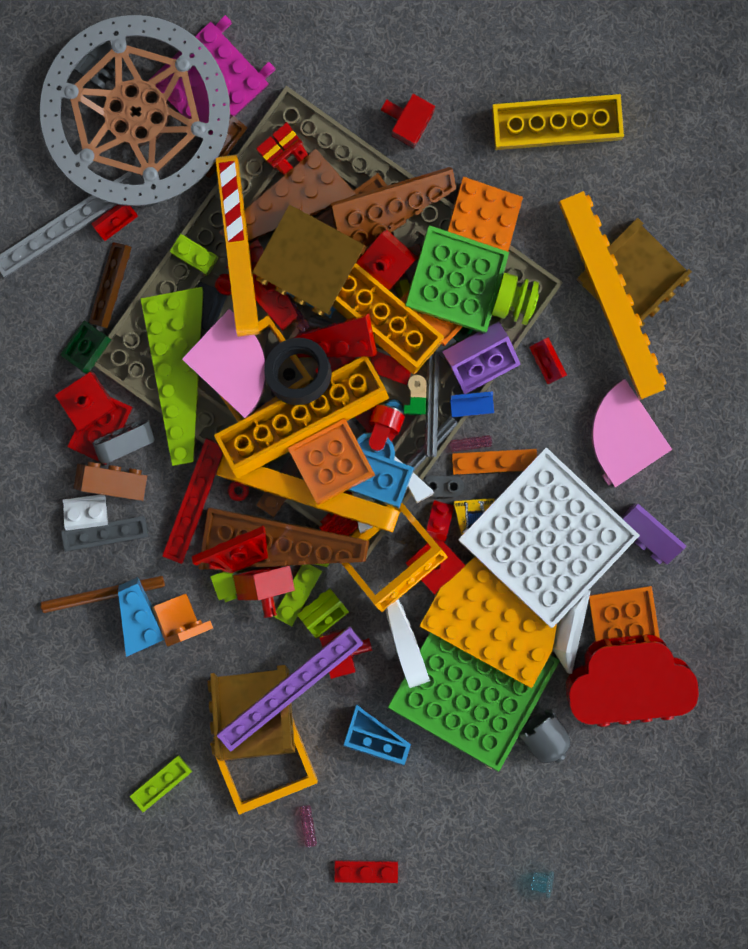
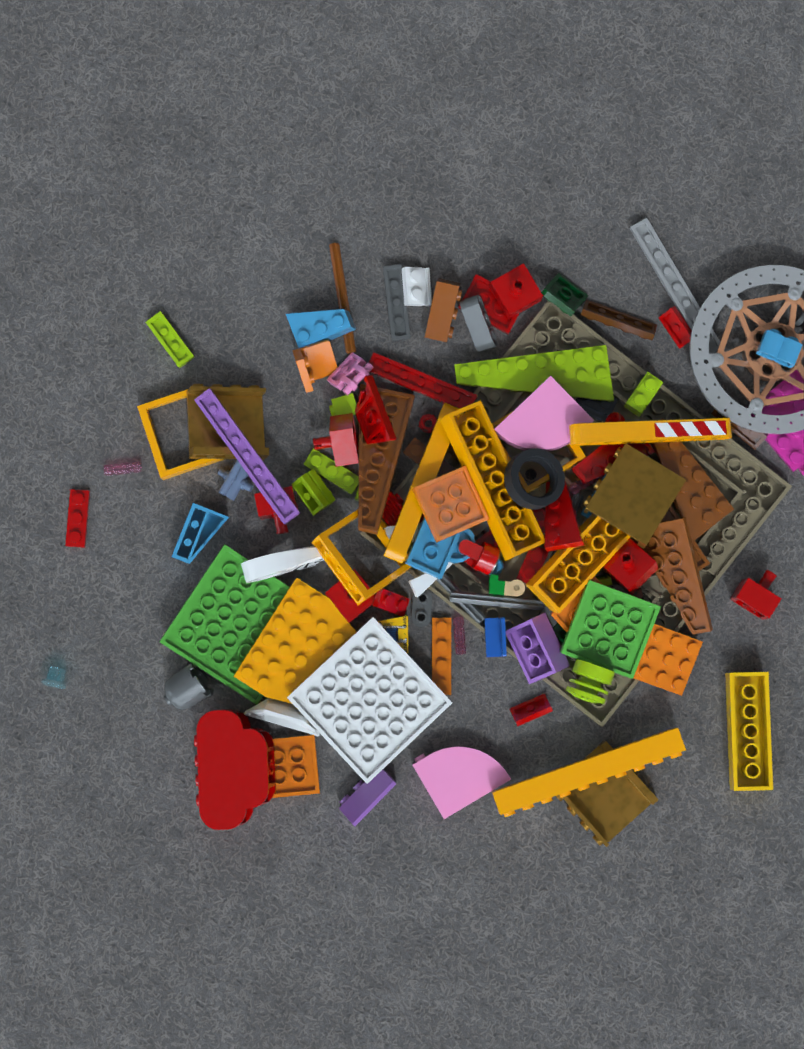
camera: 95 degrees right, 5 degrees down
(134, 106) = (779, 348): none -> dark azure brick
(185, 584) = (347, 370): none -> bright pink plate
(275, 155) = (737, 487): red hips -> none
(316, 701) = (234, 481): none -> sand blue pin

